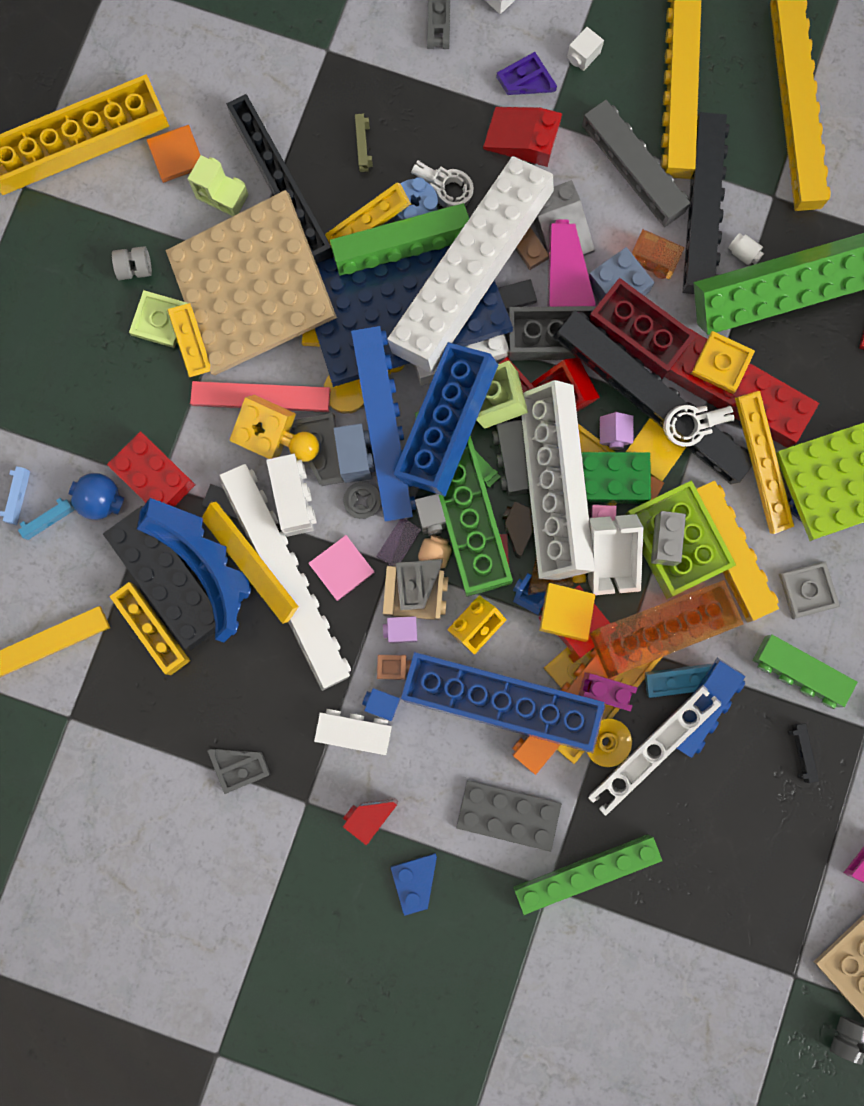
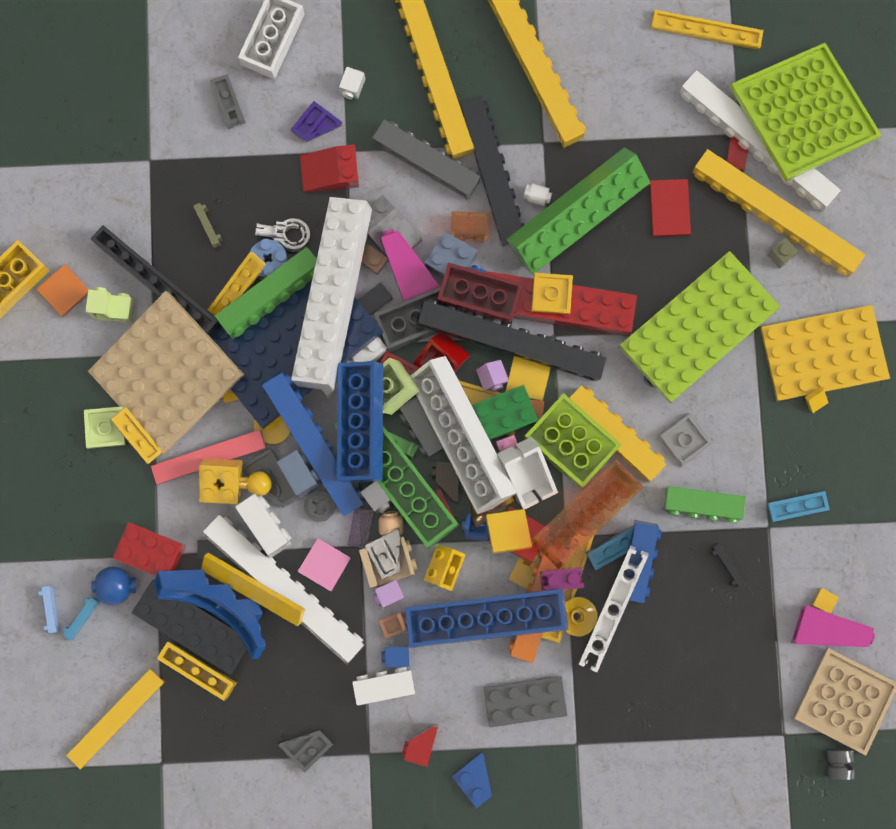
camera: 20 degrees left, 0 degrees up
(123, 263) = (59, 392): light grey wheel -> none
(587, 874) = (600, 721): bright green brick -> none
(668, 538) = (562, 446): light grey brick -> none
(710, 419) = (559, 341): white pin -> none
(764, 462) = (613, 356): yellow tile -> none

